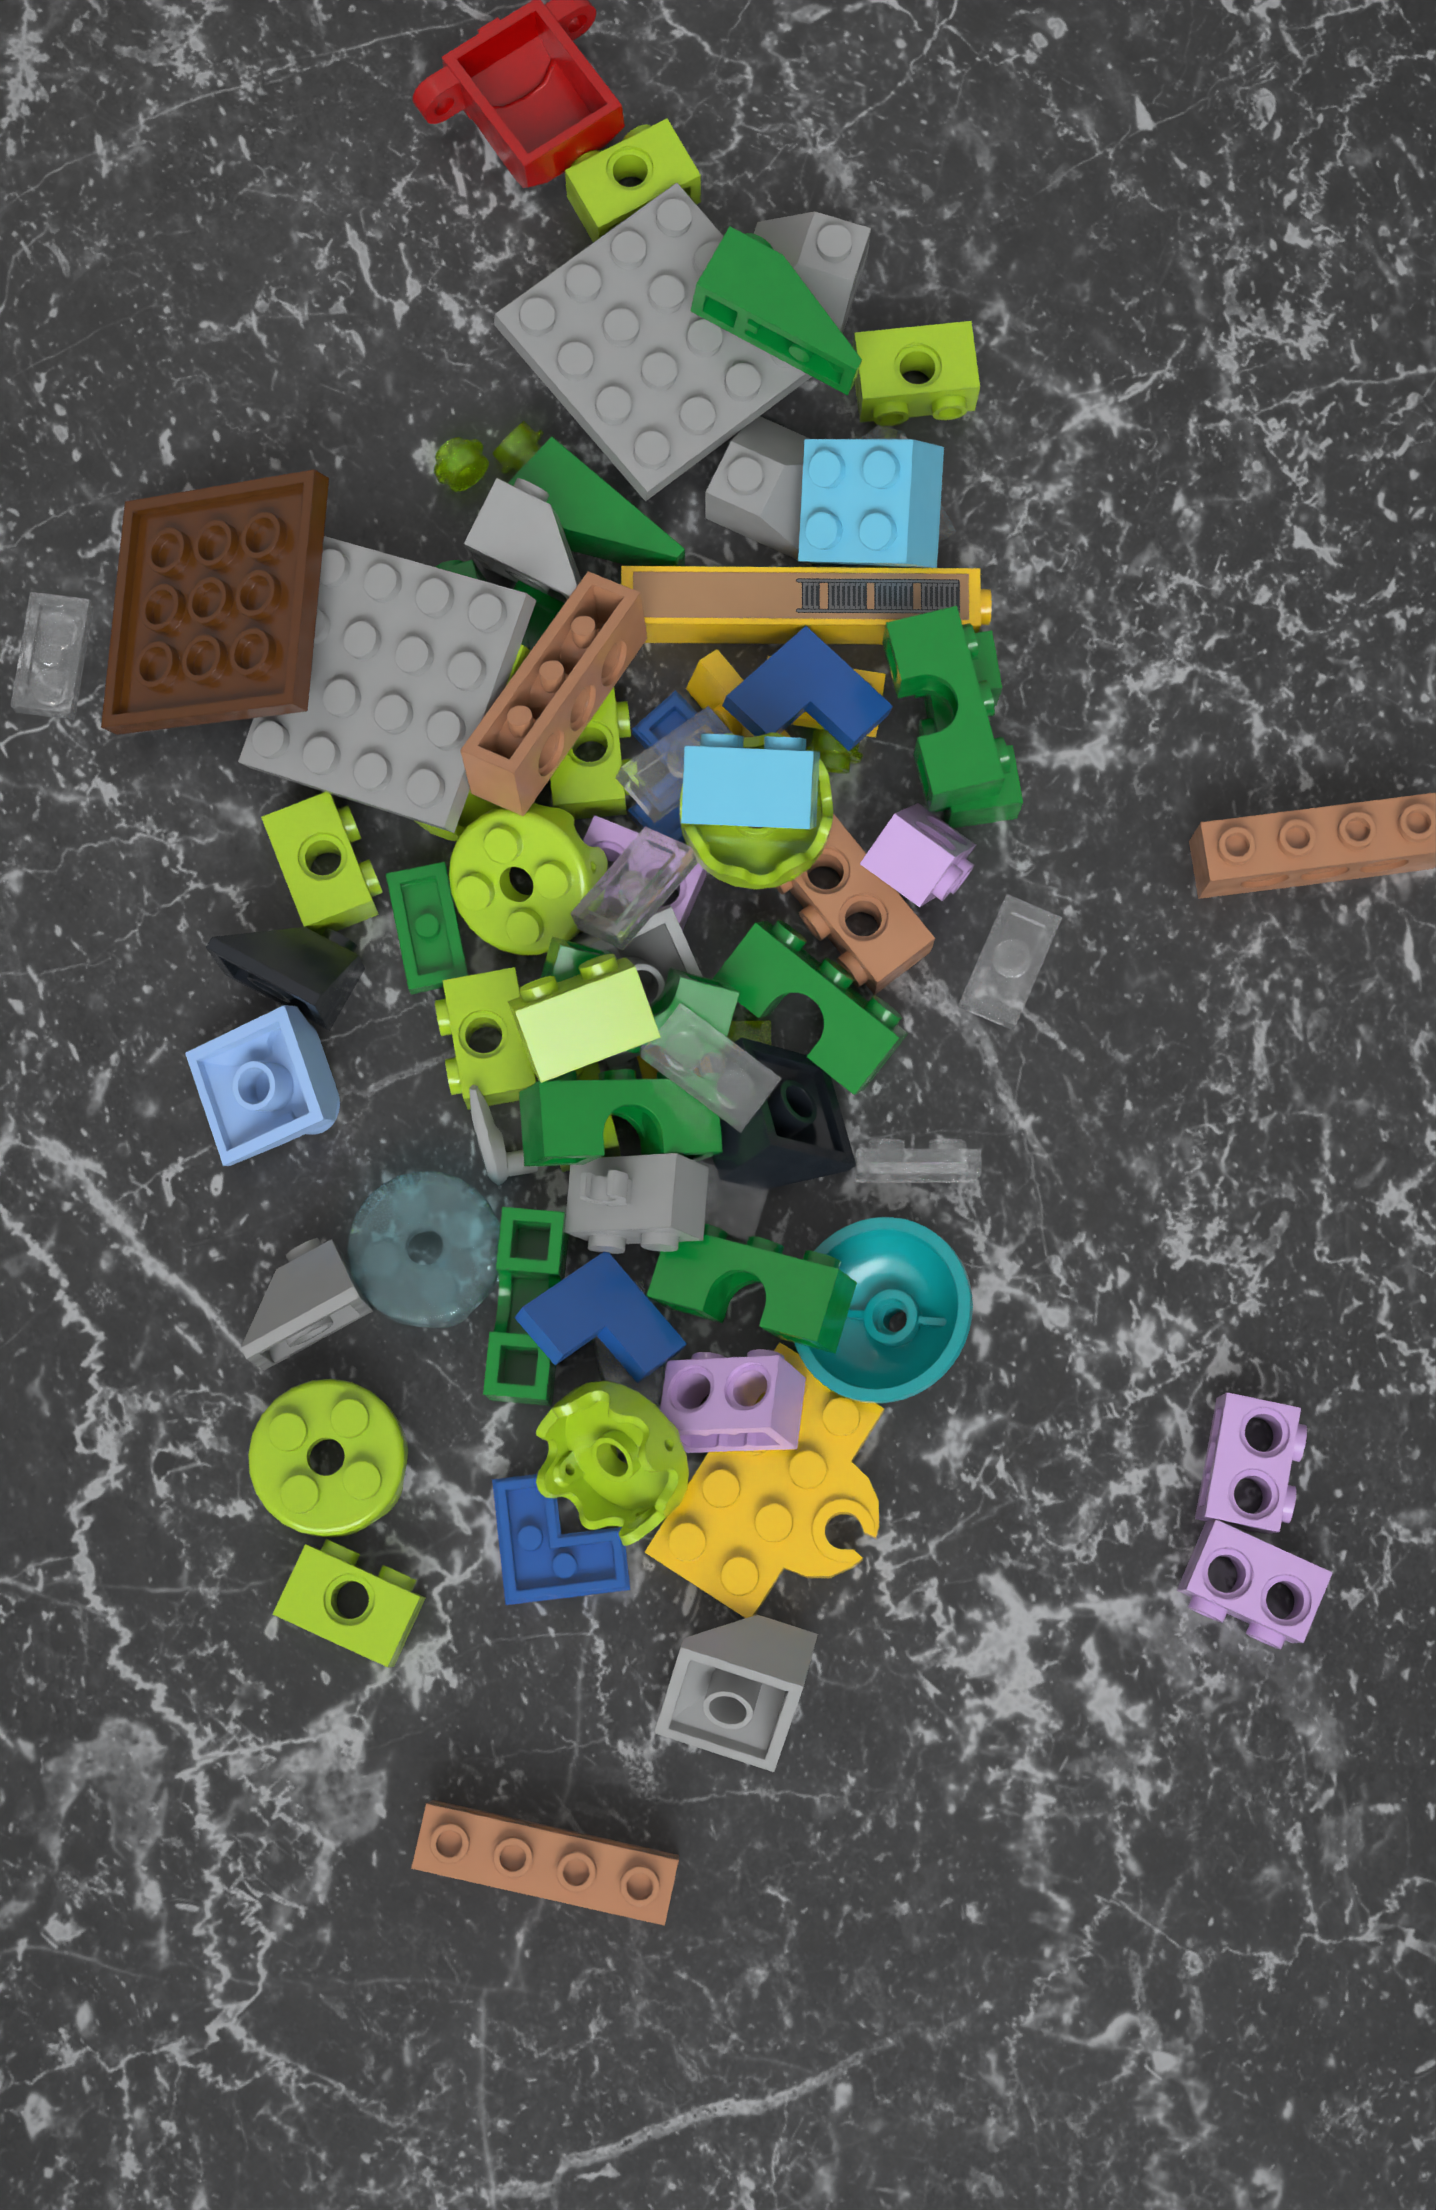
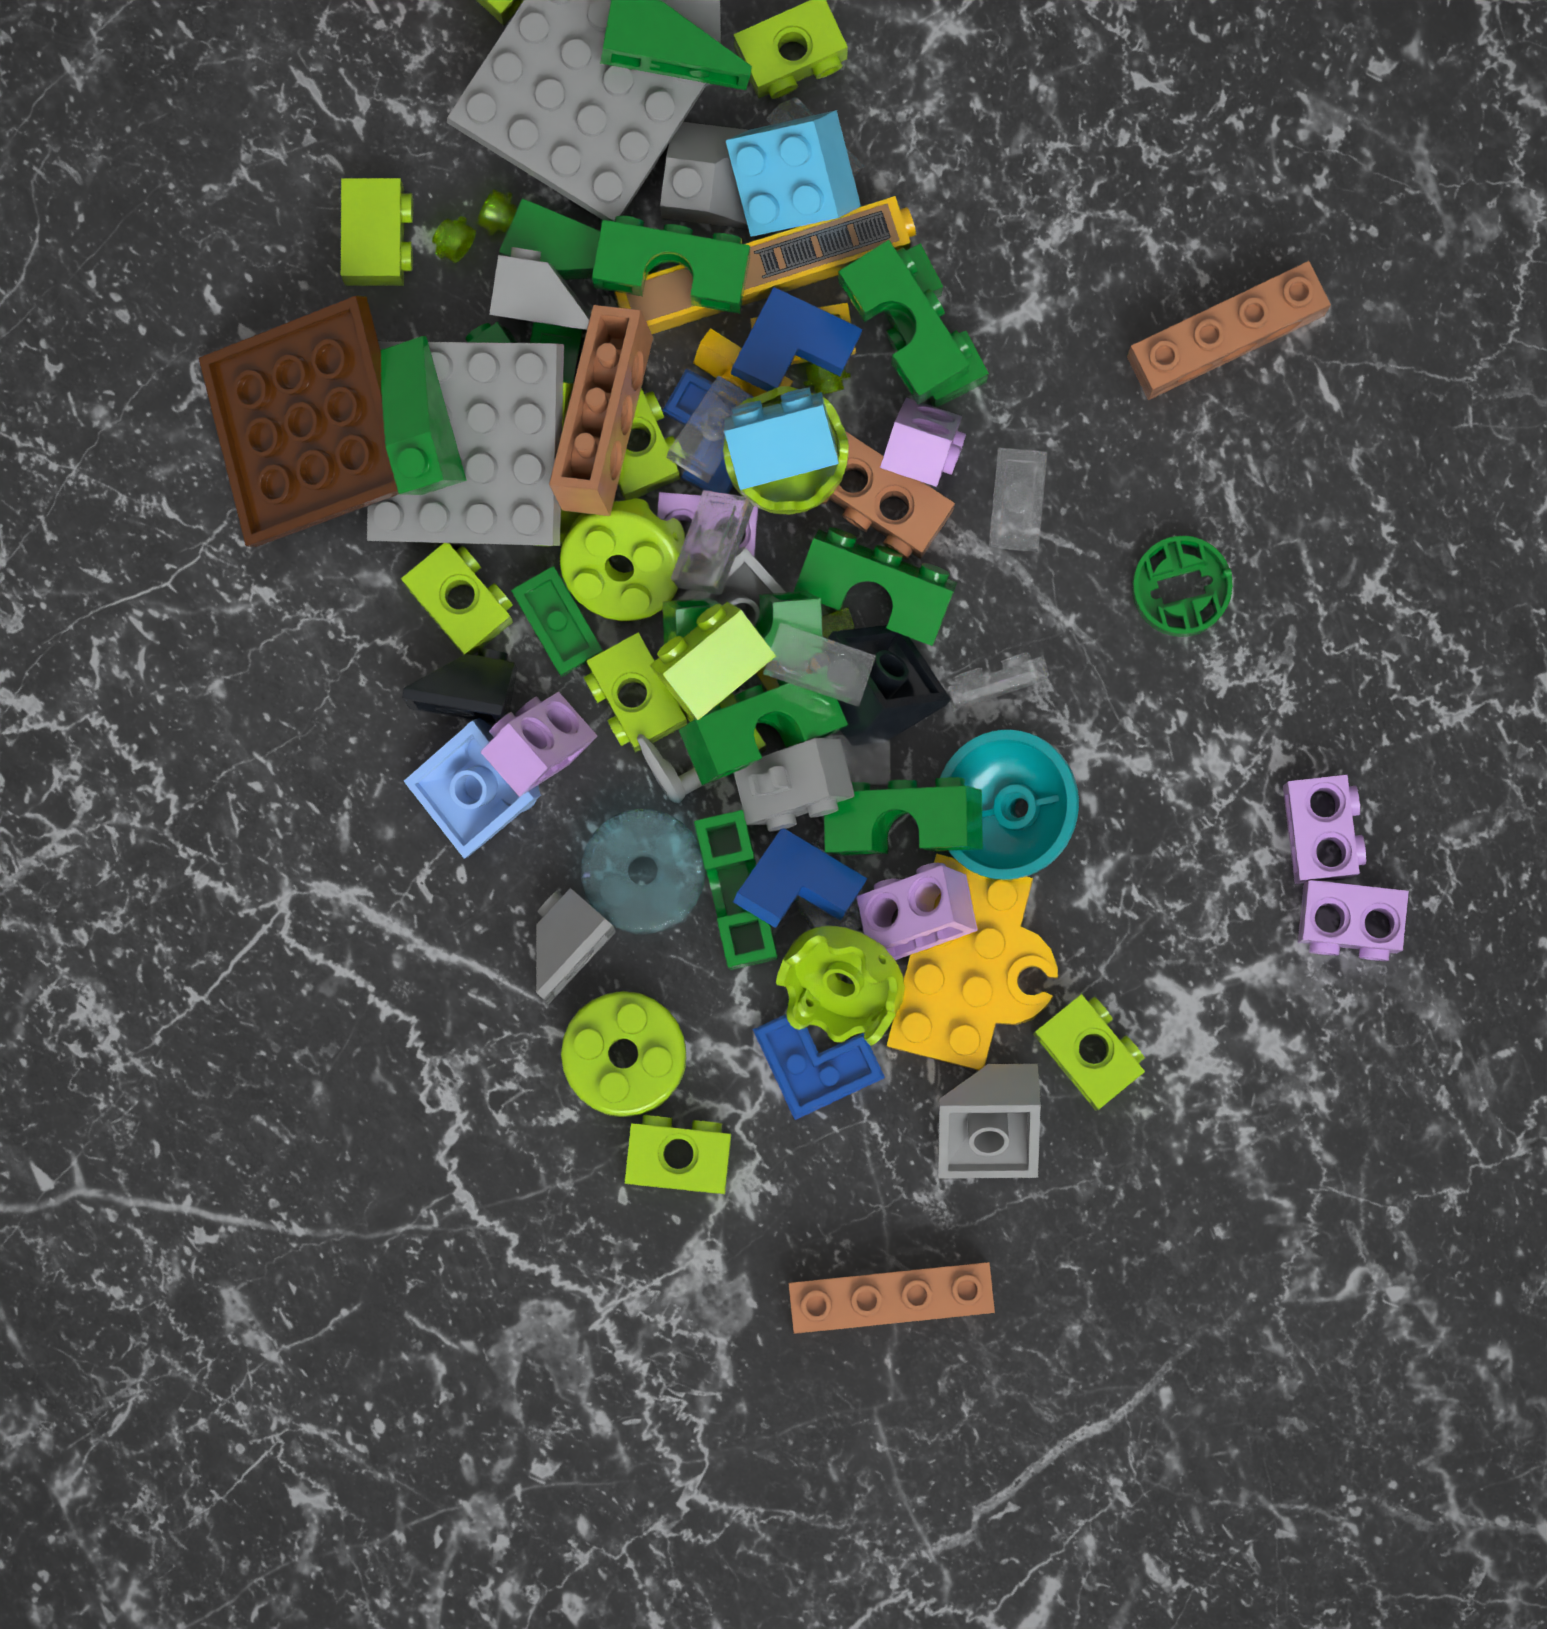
camera: 15 degrees left, 5 degrees up
(52, 655) = (186, 501): clear plate -> none
(334, 637) = (417, 421): none -> green slope
(351, 1056) = (537, 742): none -> lavender brick
(372, 425) = (374, 231): none -> lime brick
(655, 529) = (631, 251): none -> green arch
(882, 1679) = (1095, 1081): none -> lime brick
(1172, 1096) = (1175, 564): none -> green piece

